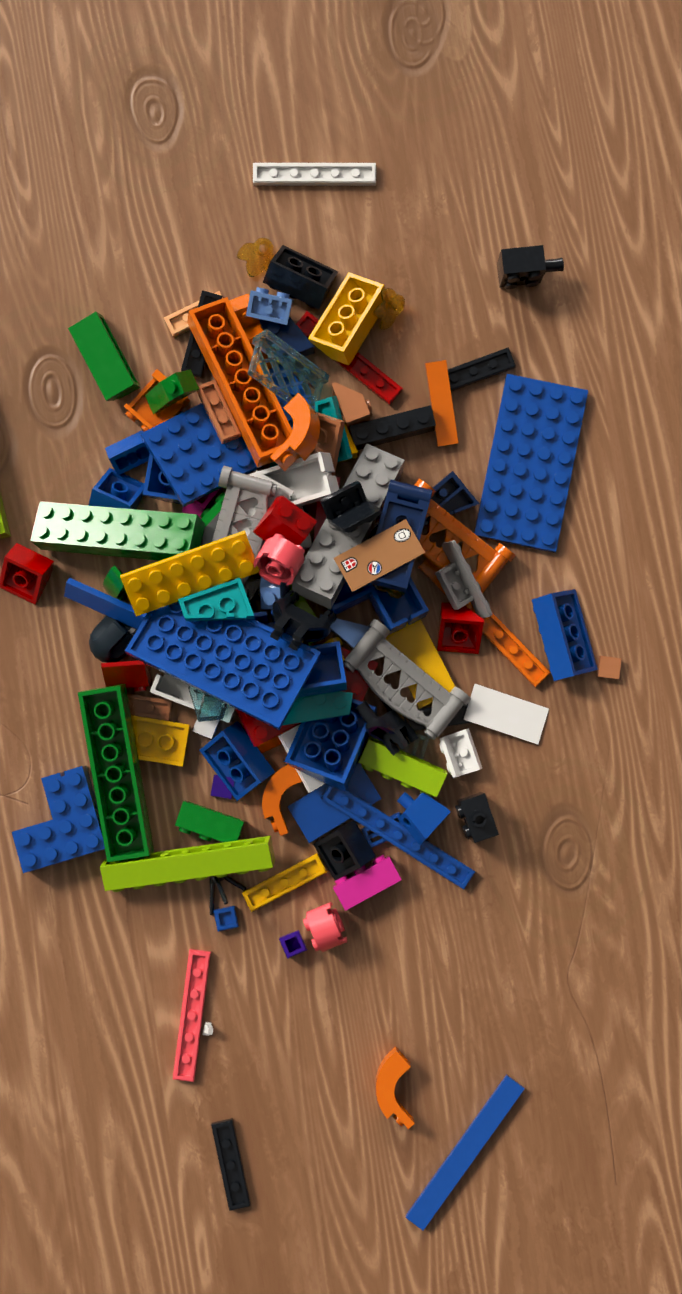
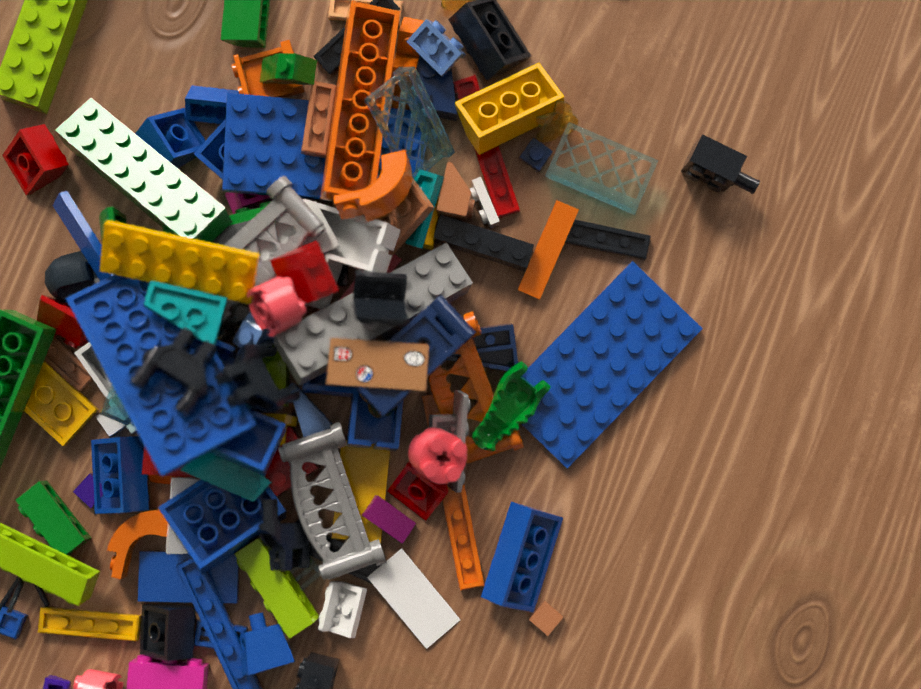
camera: 30 degrees right, 0 degrees up
(241, 645) = (180, 366): none -> black connector
(380, 403) = (480, 194): none -> white plate
(388, 341) = (535, 155): none -> dark blue plate
(443, 339) = (593, 188): none -> clear light blue fence
(451, 668) = (389, 519): none -> magenta tile
(460, 596) = (438, 455): none -> coral brick
(488, 530) = (511, 405): none -> green animal

